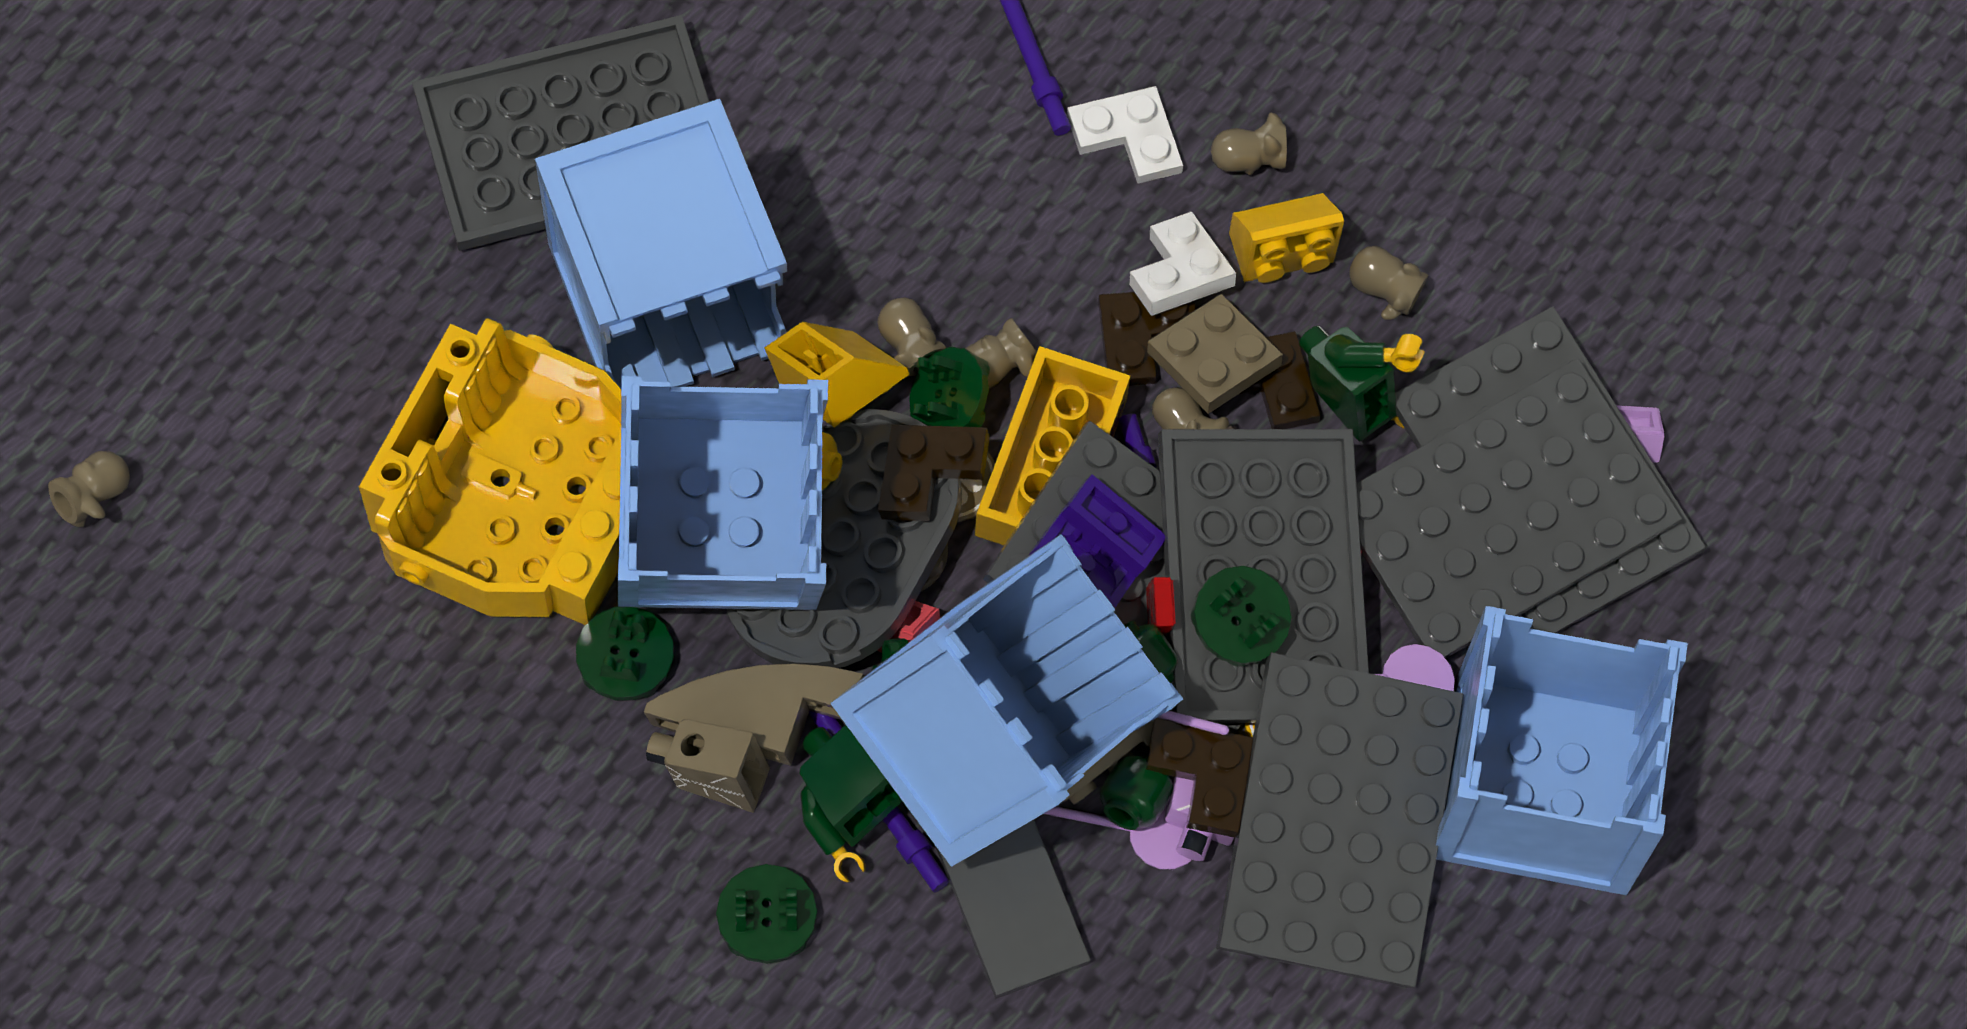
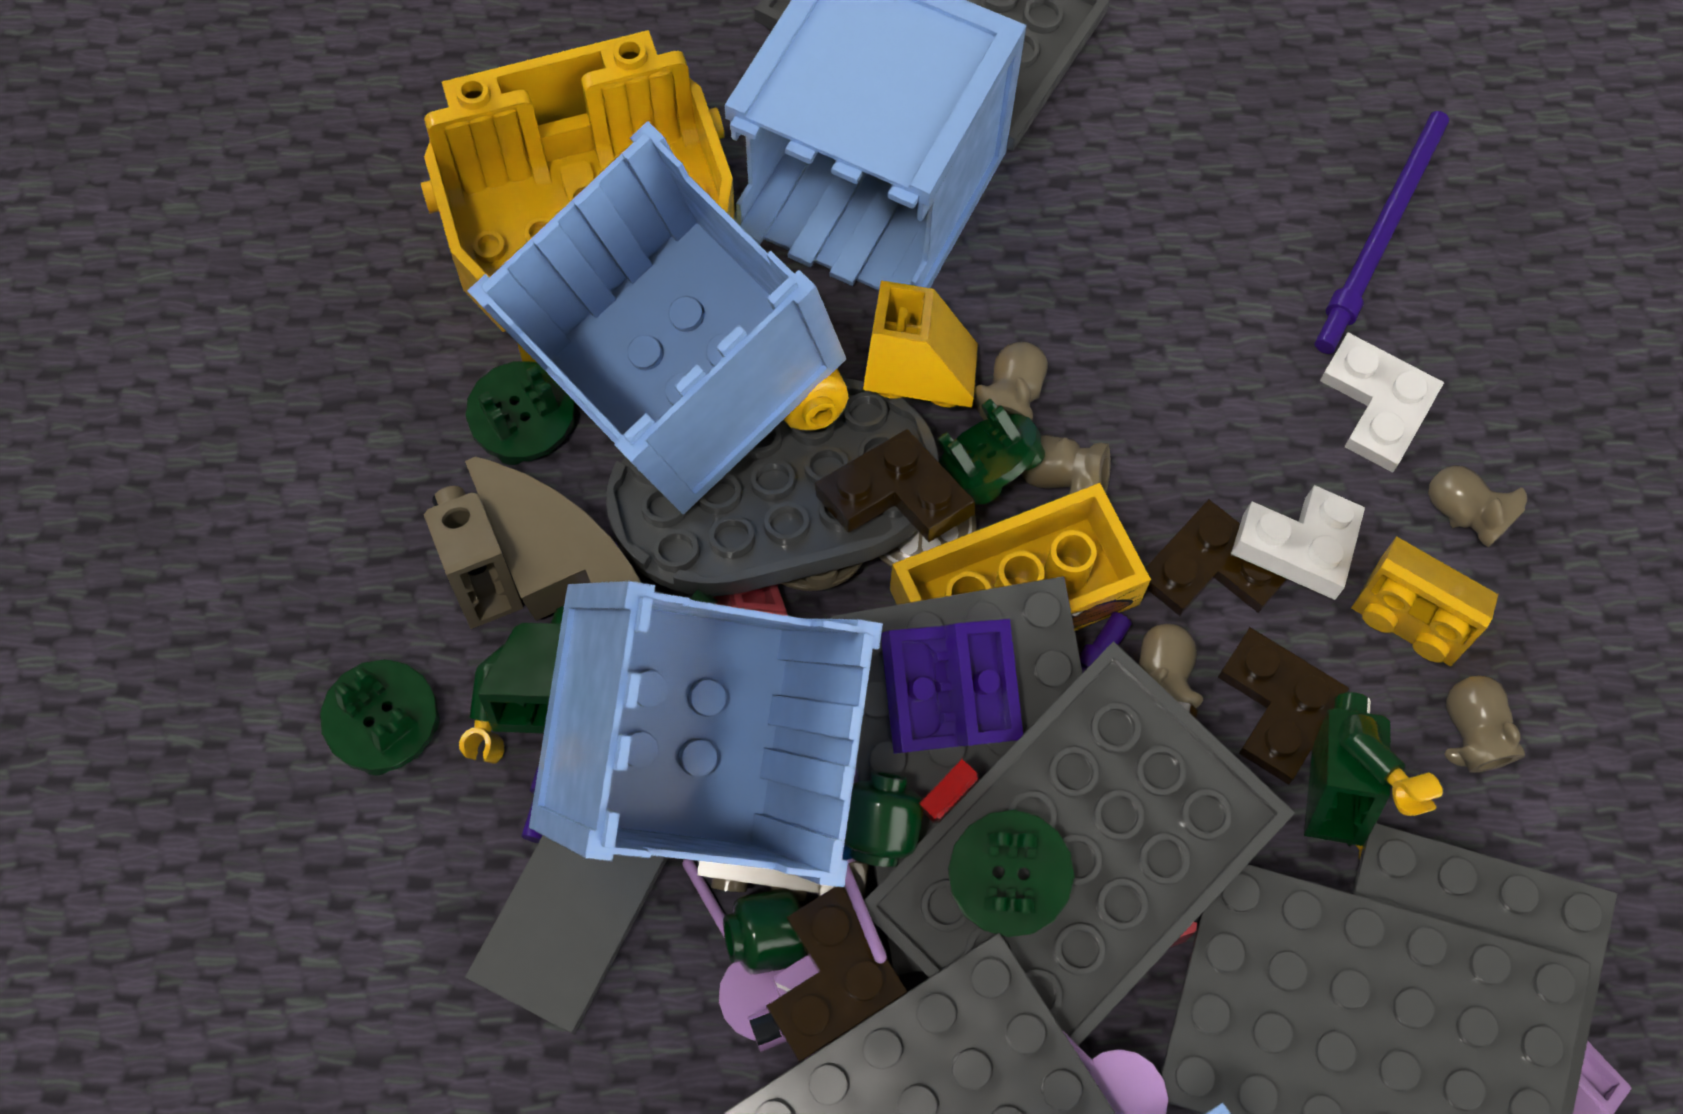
camera: 50 degrees right, 0 degrees up
(1214, 353) = (1252, 636): dark tan plate -> none

